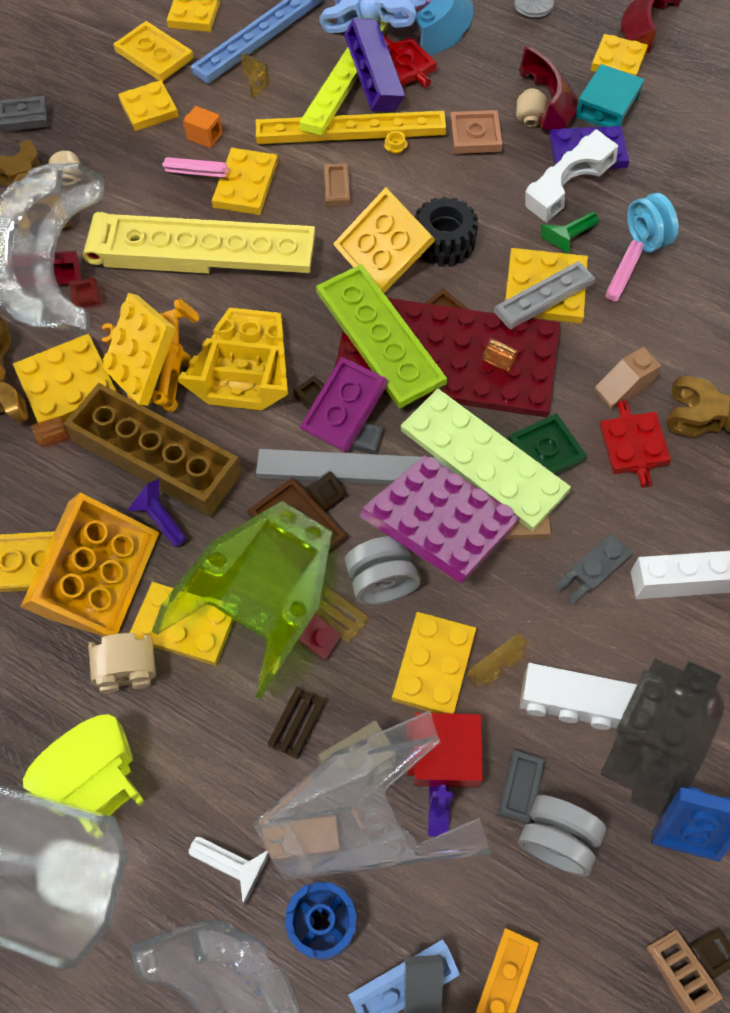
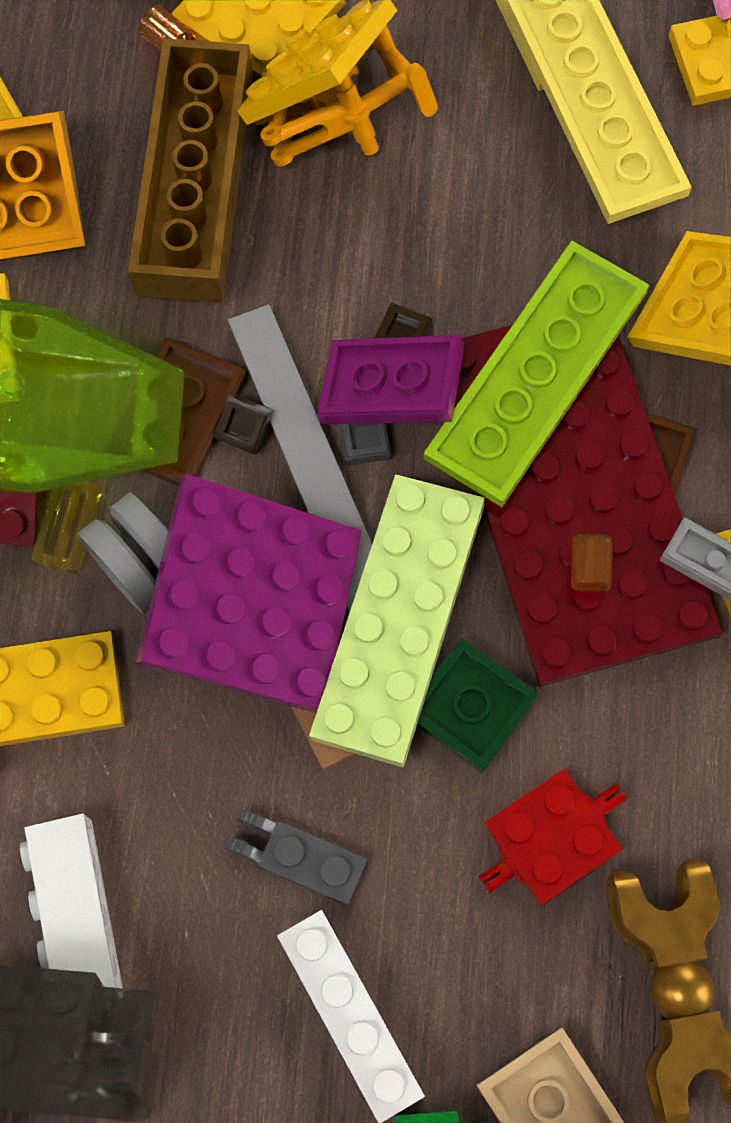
camera: 65 degrees right, 10 degrees up
(149, 501) = (110, 208): dark purple piece -> none
(240, 362) = (403, 205): yellow wedge -> none
(488, 668) = (97, 783): clear yellow plate -> none
(628, 377) = (666, 782): medium nougat slope -> none

